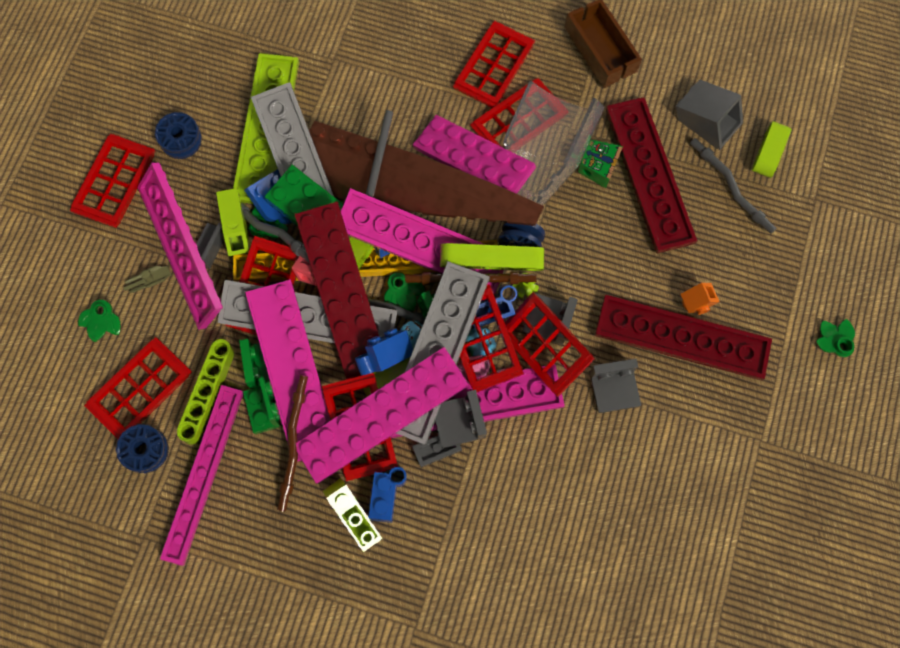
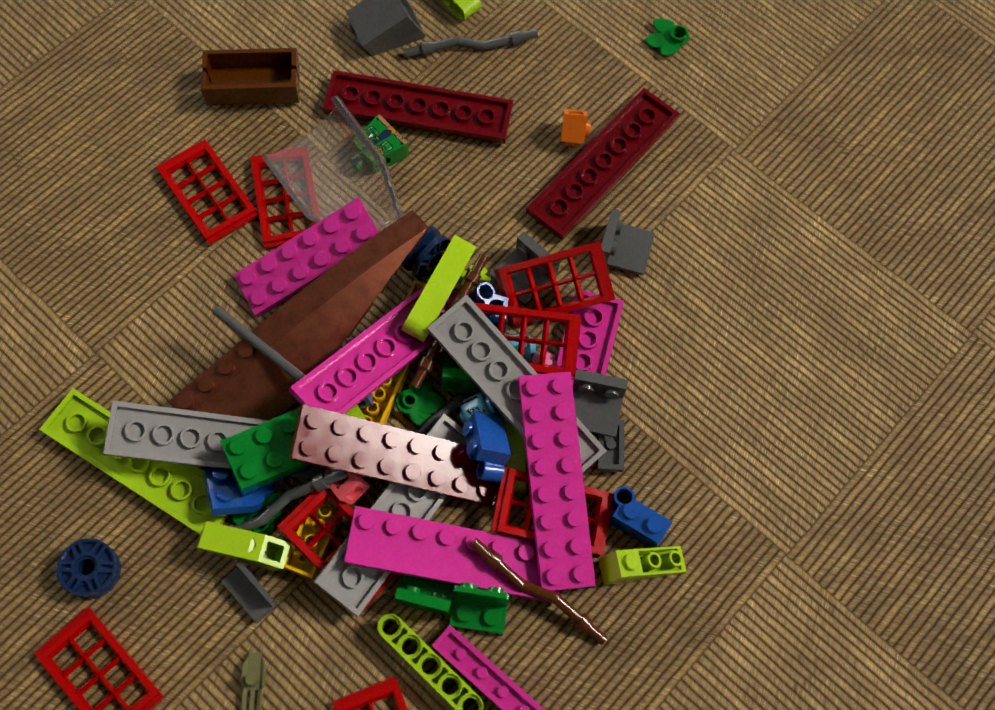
camera: 65 degrees left, 5 degrees down
(179, 246) = (234, 623): dark pink plate -> none

